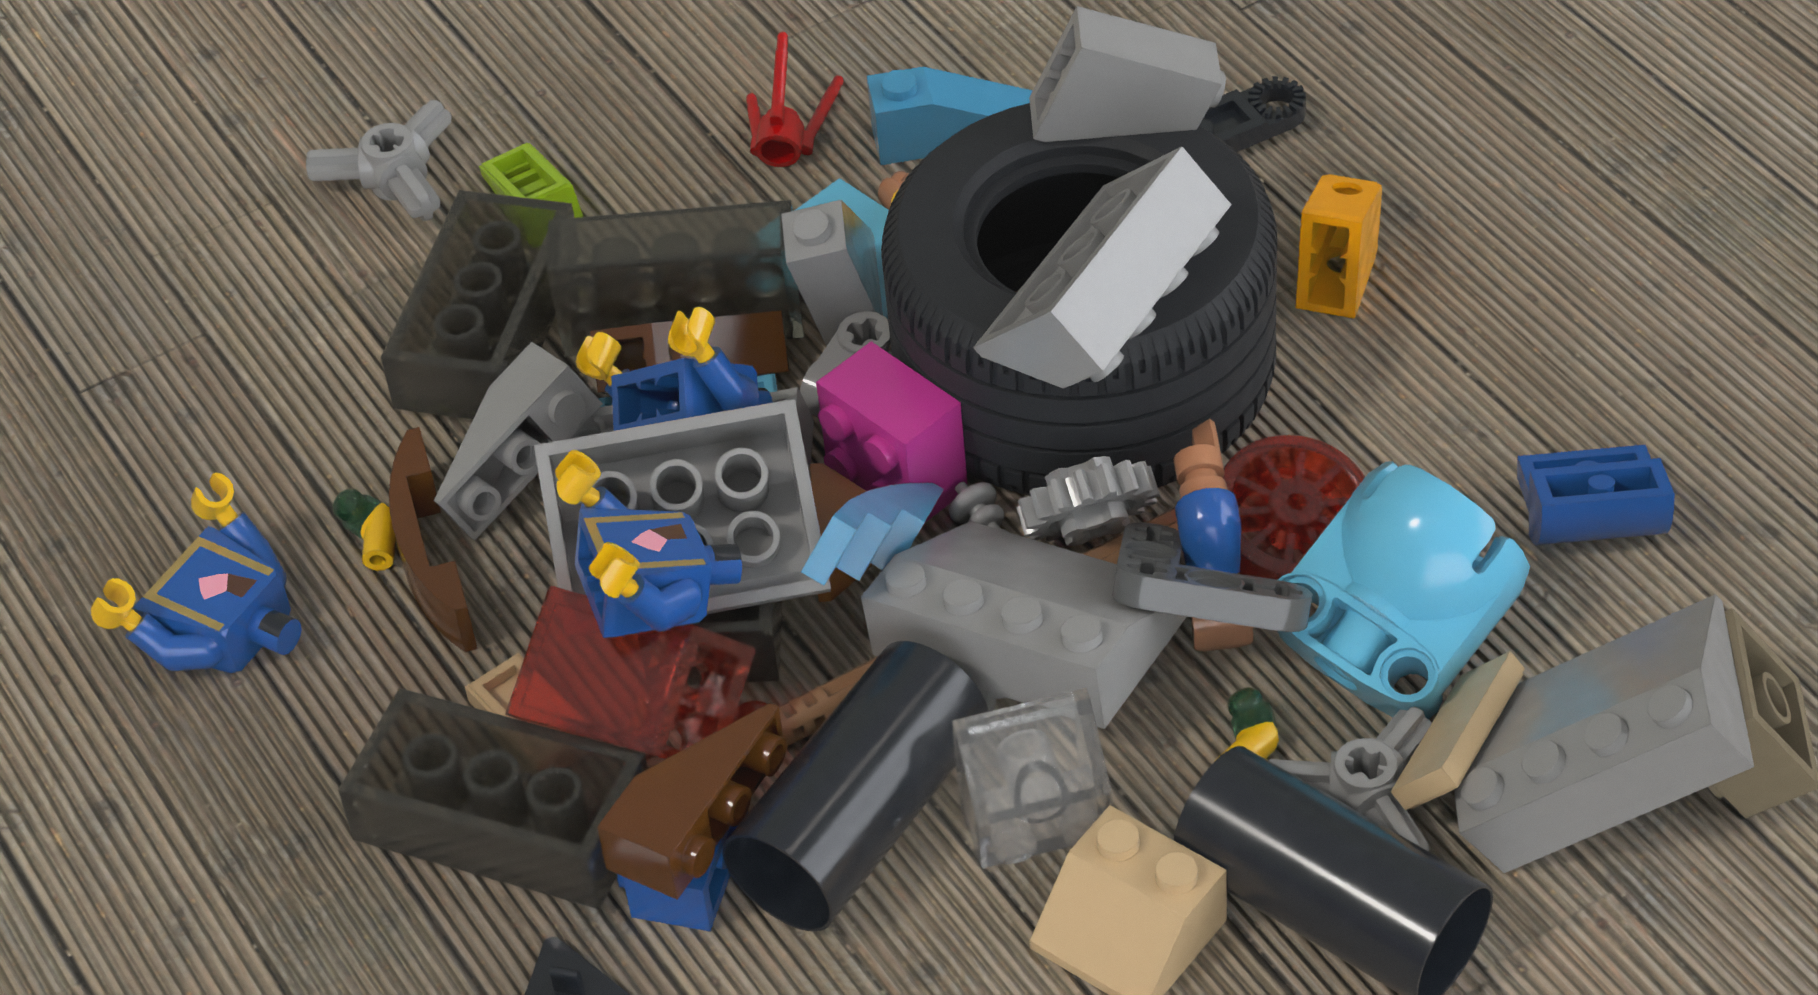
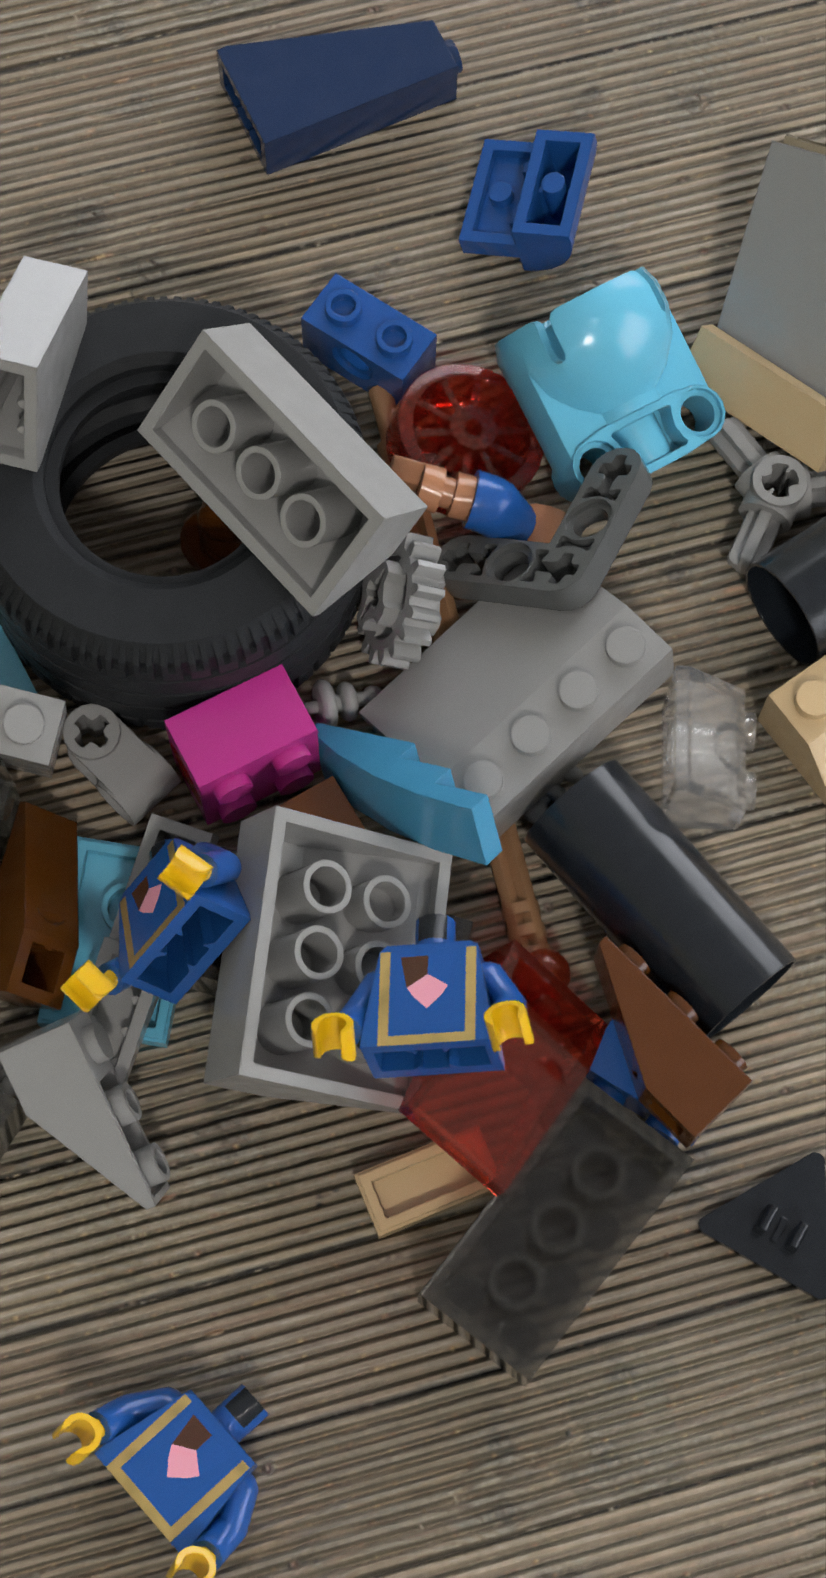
camera: 80 degrees left, 25 degrees up
(370, 522) = (118, 1282): arm -> none
(434, 587) = (264, 1231): reddish brown slope -> none
(1252, 722) = (681, 561): arm -> none
(1335, 222) = (135, 262): light orange torso -> none
(1366, 405) = (366, 338): none -> blue brick
(1634, 321) = (335, 87): none -> dark blue slope

